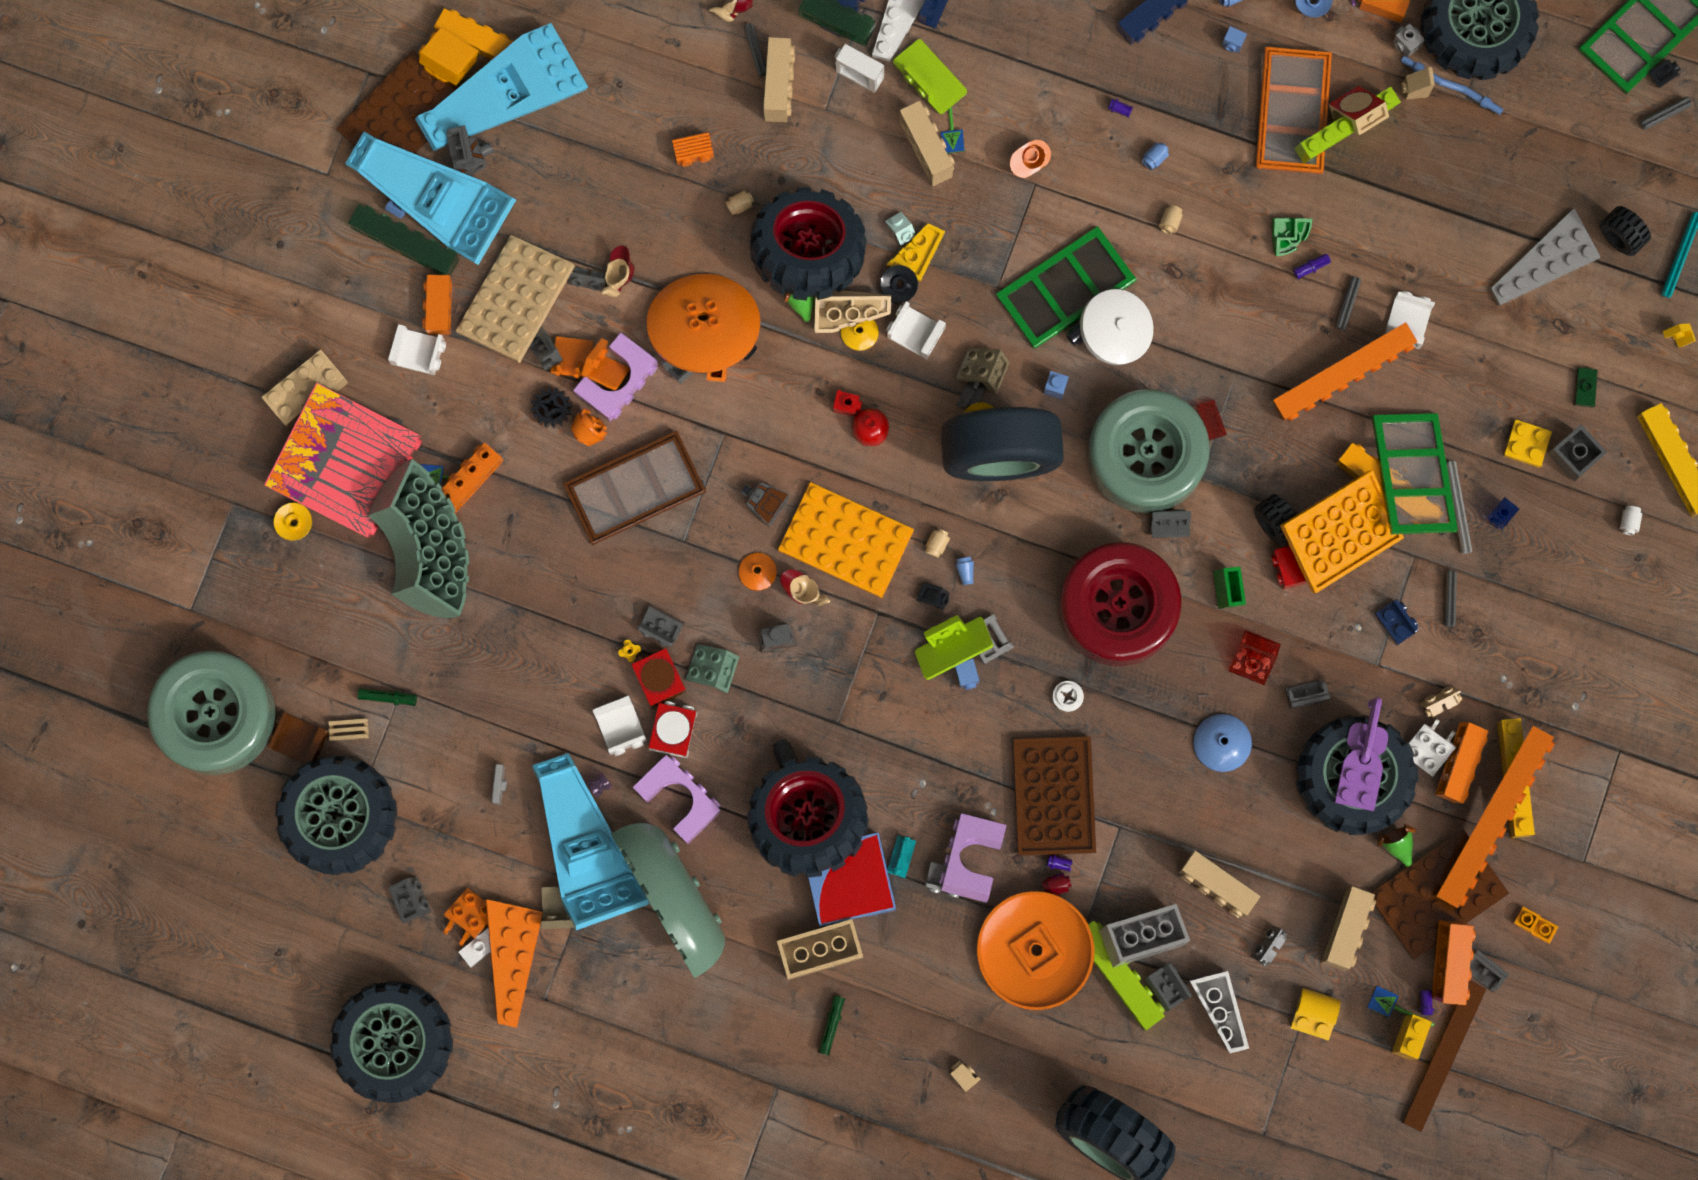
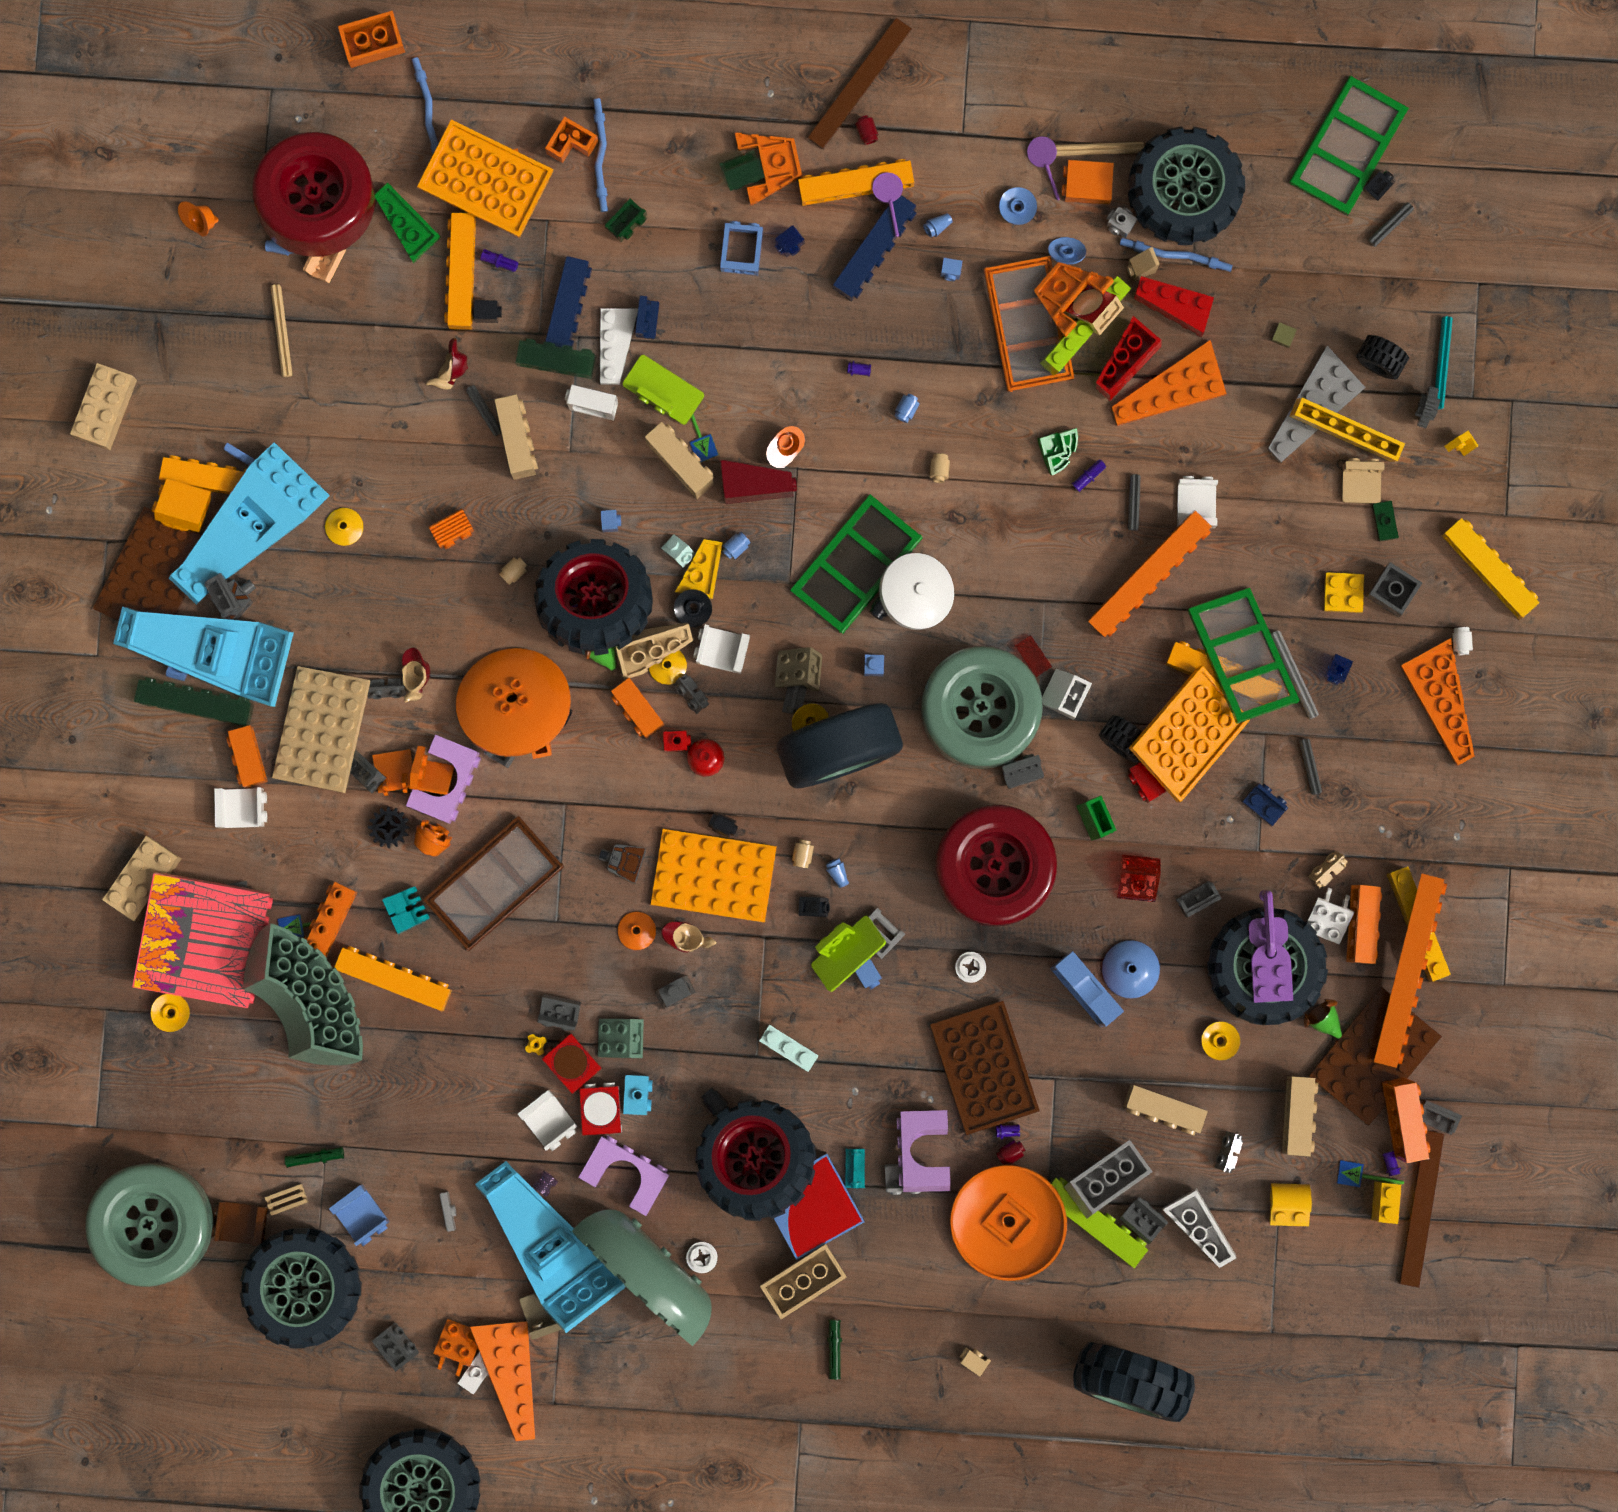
camera: 20 degrees left, 5 degrees up
(413, 764) = (360, 1215): none -> medium blue panel
(512, 550) = (393, 979): none -> light orange brick
(513, 24) = (238, 454): none -> medium blue tile
(536, 484) = (397, 906): none -> teal legs
(595, 128) = (348, 535): none -> yellow dish
(712, 725) = (636, 1095): none -> medium azure brick
(722, 906) = (710, 1261): none -> white gear
(818, 362) = (636, 708): none -> orange brick
(844, 182) = (610, 521): none -> medium blue plate
(869, 494) = (723, 825): none -> black brick
(870, 355) = (695, 701): none -> dark grey hinge
(870, 722) = (788, 1048): none -> light aqua brick
(956, 238) = (736, 545): none -> medium blue brick
(992, 184) = (755, 483): none -> dark red slope
(1174, 745) = (1086, 989): none -> medium blue tile
(1233, 462) = (1065, 693): none -> white slope
(1298, 828) = (1230, 1038): none -> yellow dish
(1335, 83) = (1061, 289): none -> orange wing
(1349, 52) = (1067, 250): none -> medium blue dish
(1380, 166) = (1129, 356): none -> red wedge
(1424, 207) = (1183, 384): none -> orange wing
(1439, 128) = (1176, 303): none -> red wedge
(1535, 187) = (1284, 335): none -> olive tile
(1536, 925) = (1475, 1059): light orange slope -> none
(1572, 289) = (1347, 429): none -> yellow brick
(1574, 342) = (1362, 481): none -> tan bracket
(1595, 562) = (1440, 693): none -> orange wing
(1656, 290) = (1427, 407): none -> dark grey gear

